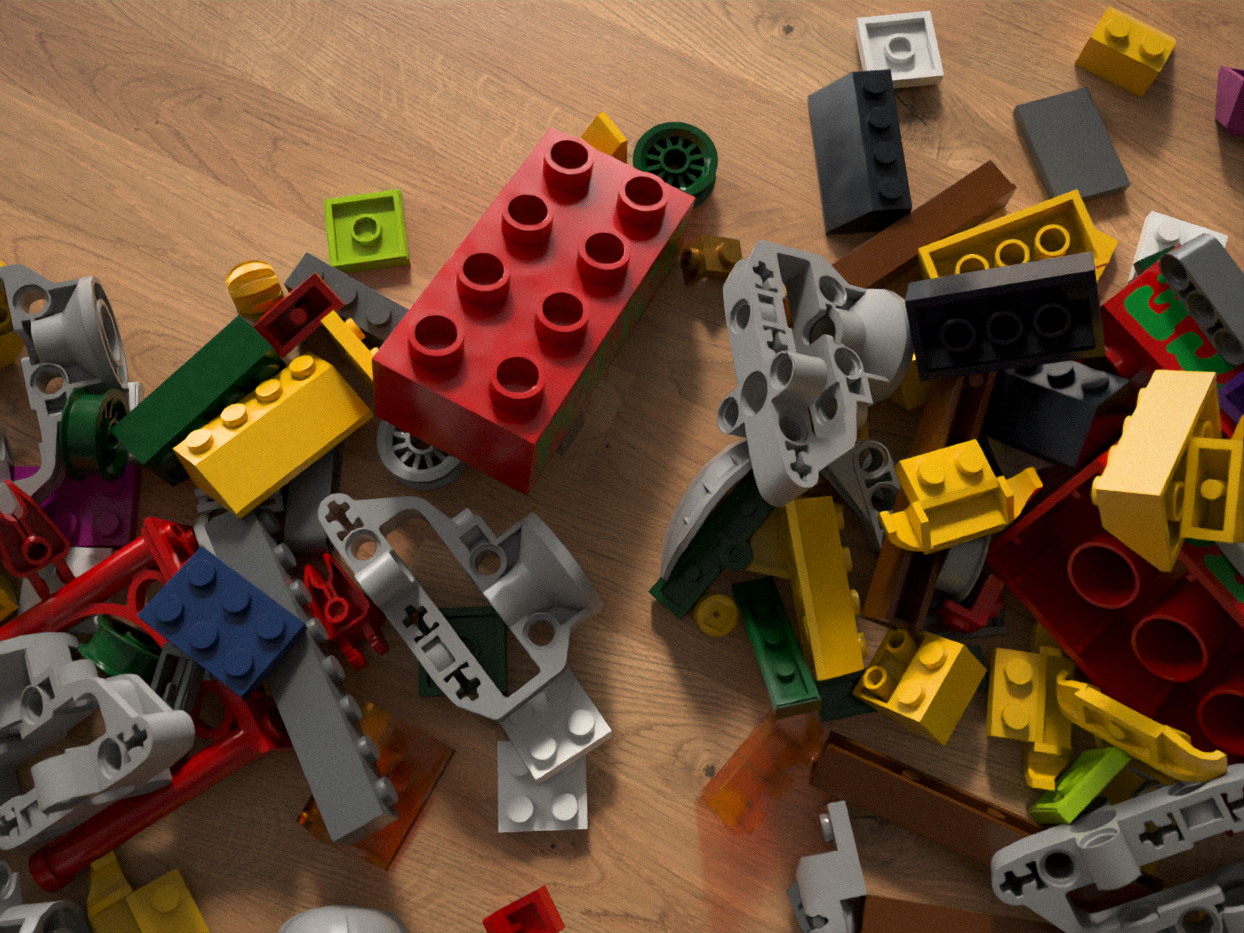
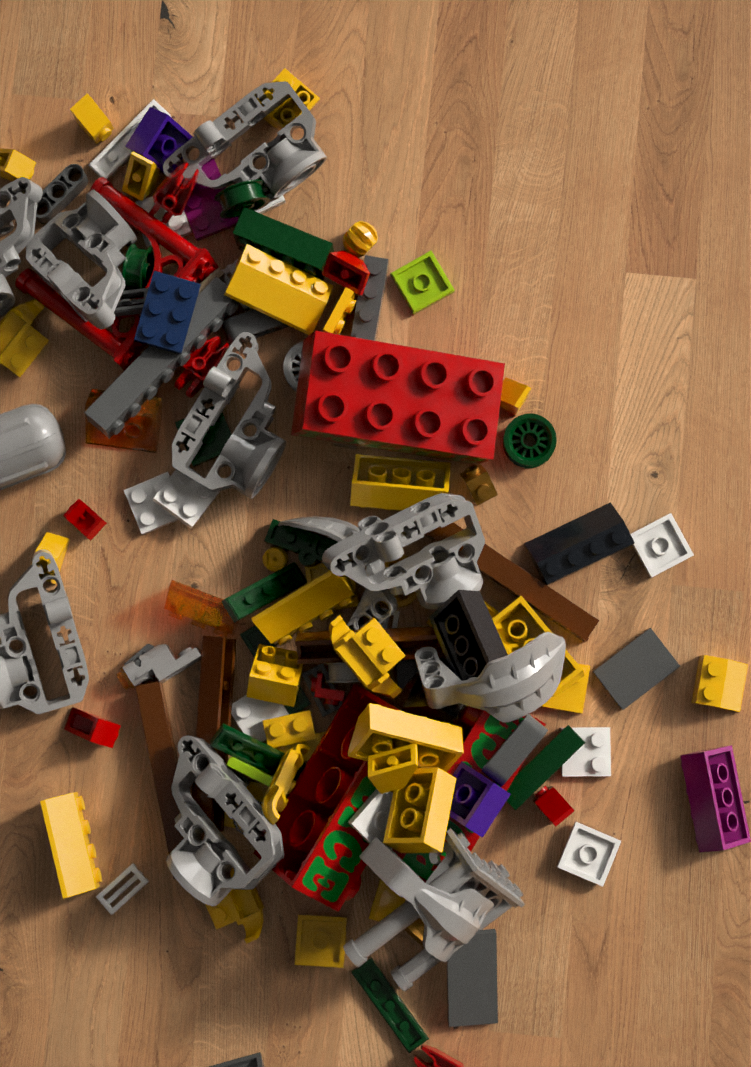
camera: 75 degrees right, 10 degrees up
(667, 373) = (396, 481): none -> yellow slope
(970, 755) = (251, 712): none -> white plate
(1042, 777) = (249, 750): none -> dark green tile
(1122, 290) = (506, 686): none -> light grey piece

